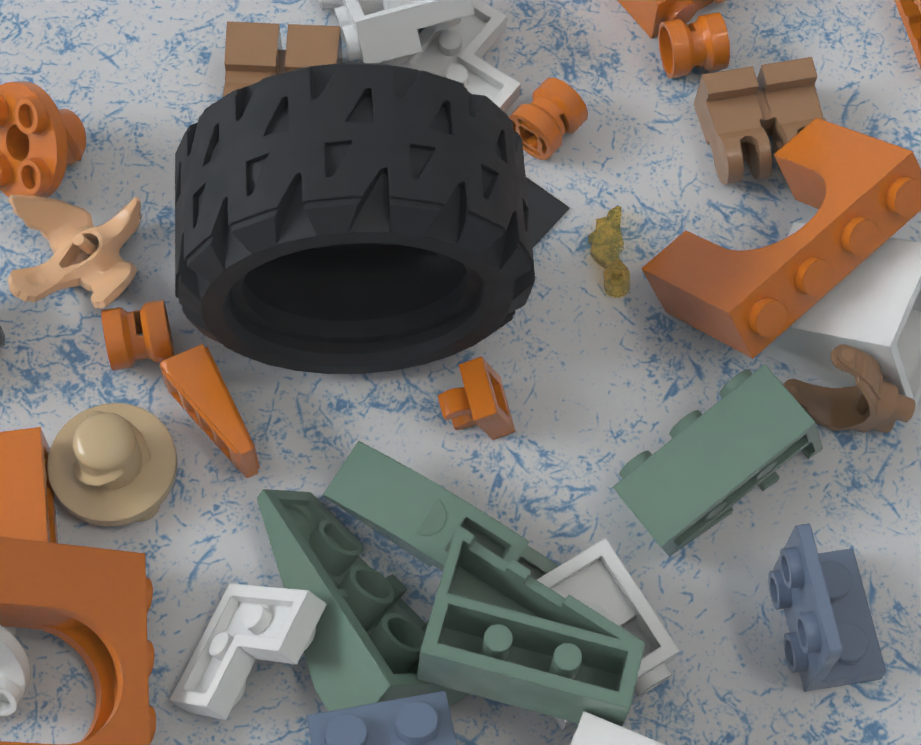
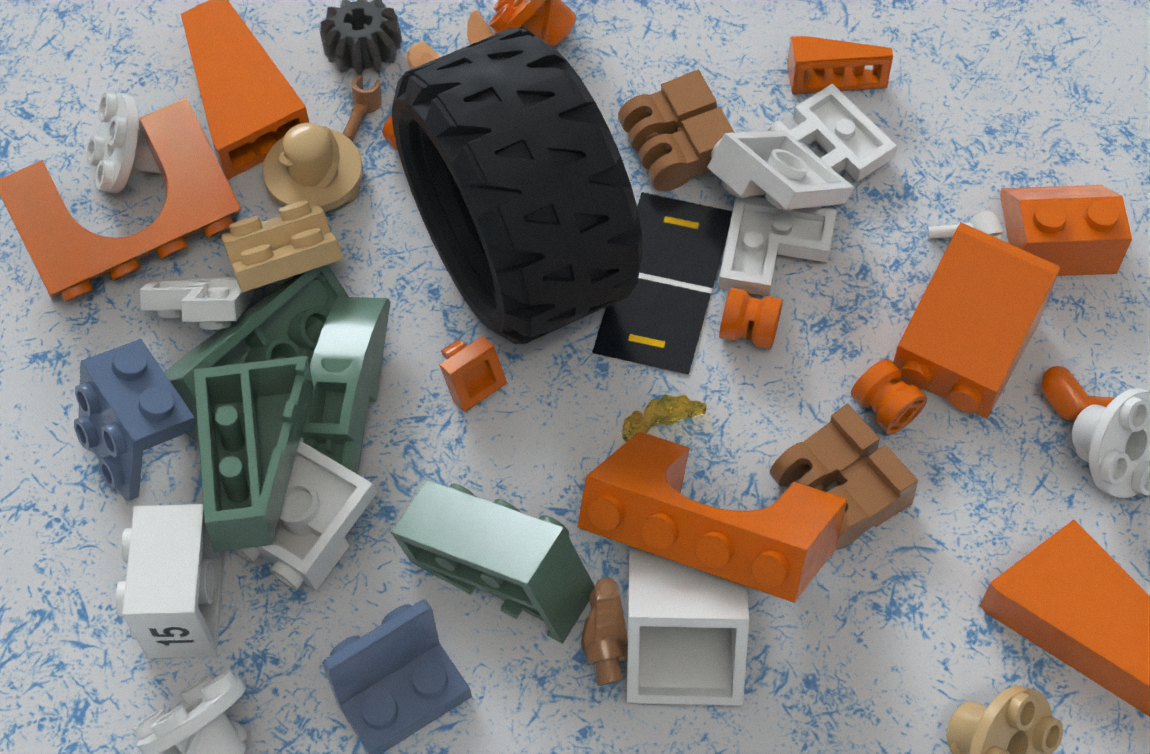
camera: 70 degrees right, 5 degrees down
(42, 377) = (363, 102): none -> medium nougat hand
(202, 393) = (378, 210): orange slope -> none
(229, 529) = (280, 246): none -> tan plate

